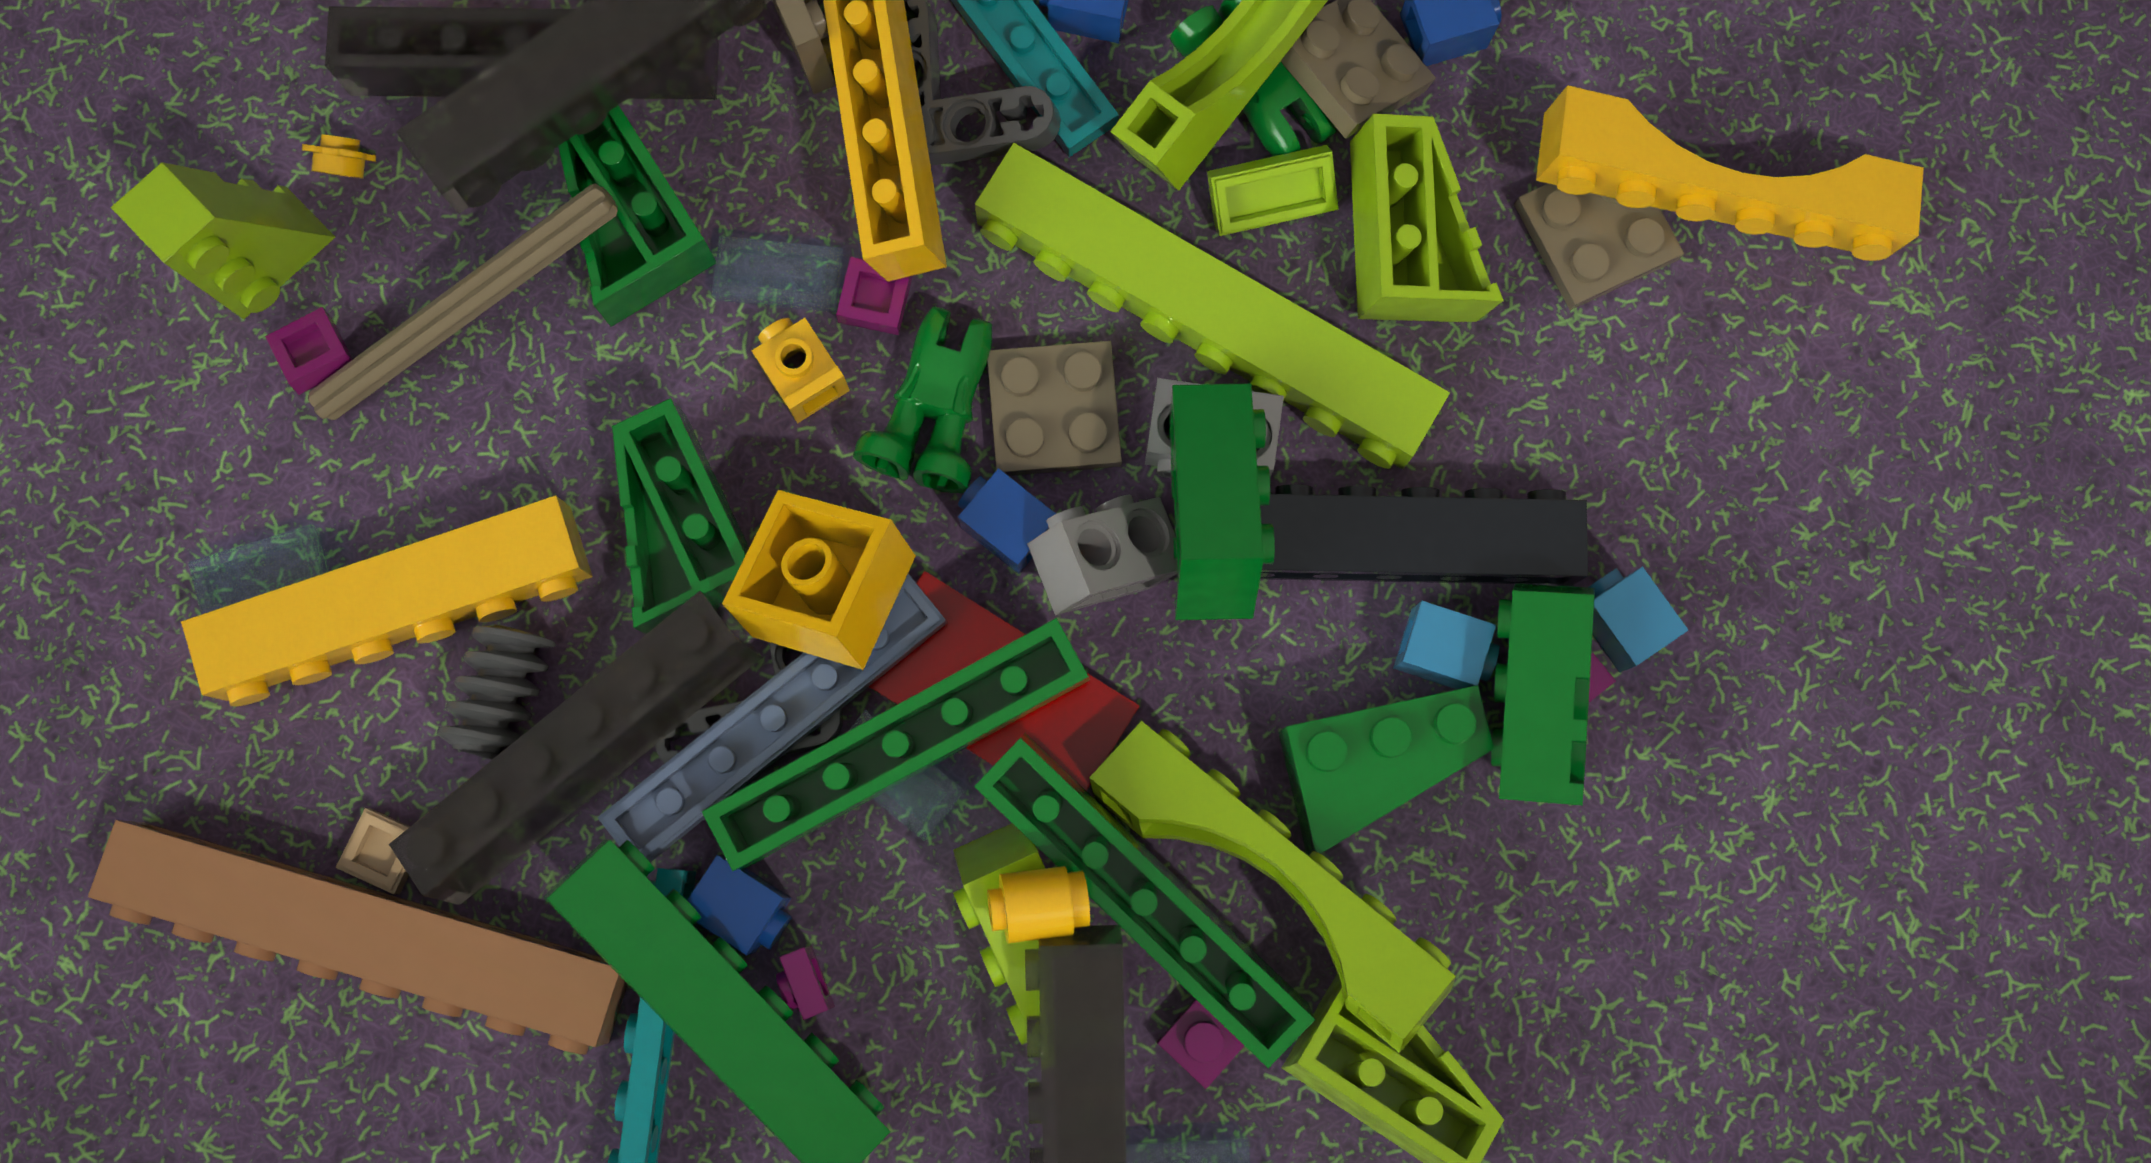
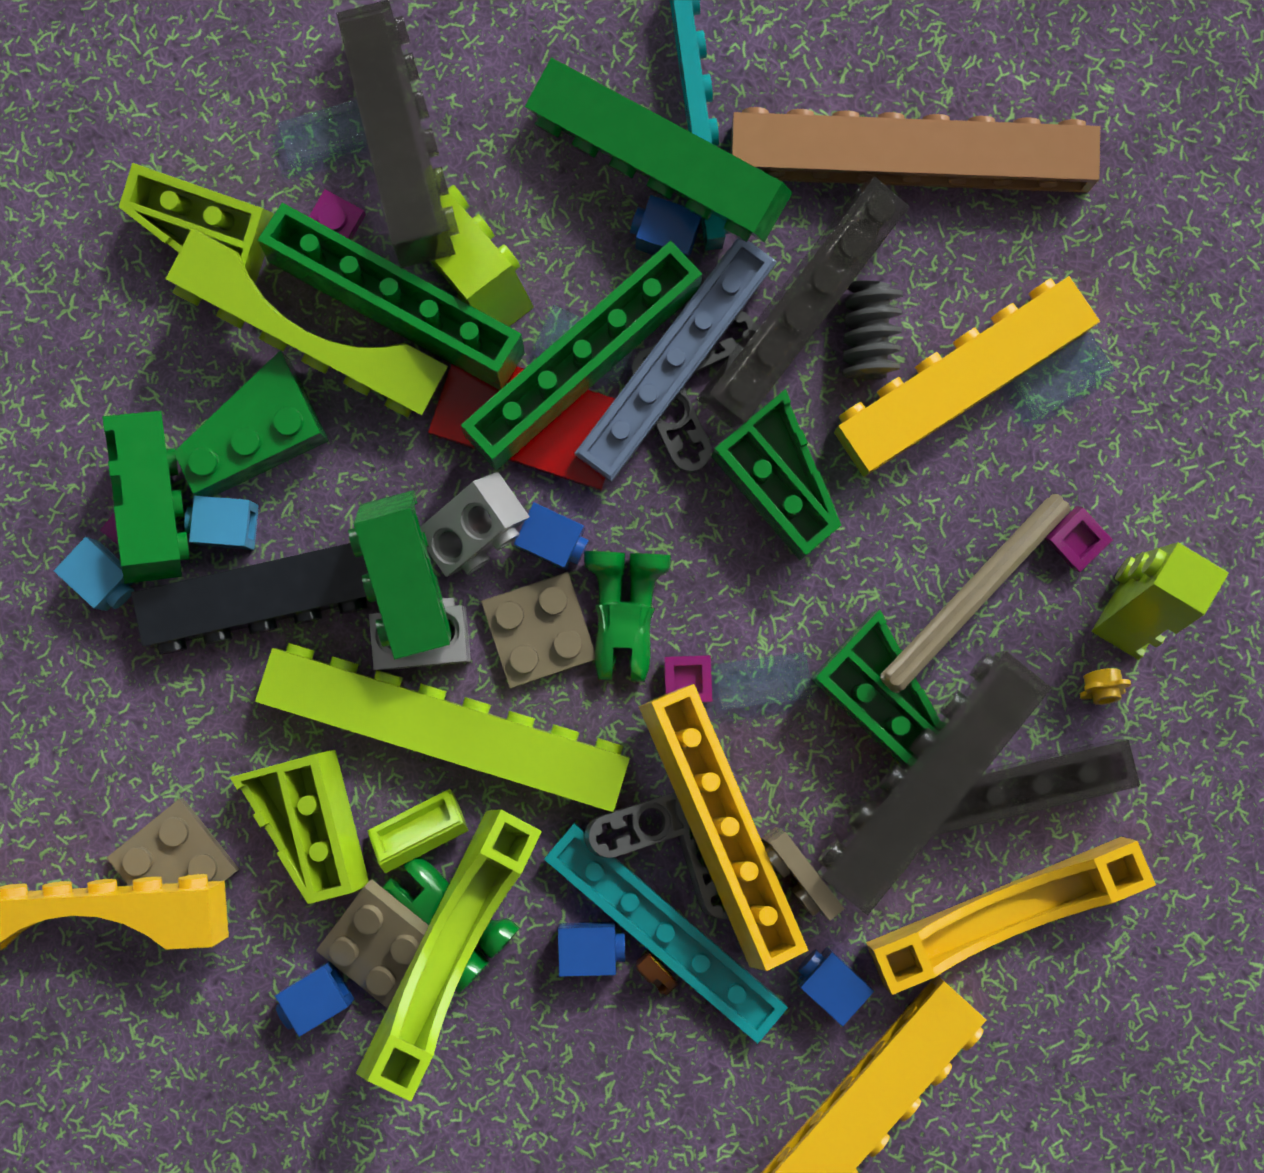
camera: 170 degrees right, 5 degrees up
(370, 855) = (924, 213): tan tile -> none
(803, 983) = (608, 190): magenta plate -> none
(811, 384) = (709, 609): yellow brick -> none
(820, 579) = (665, 452): yellow brick -> none
(1039, 904) = (455, 261): yellow brick -> none

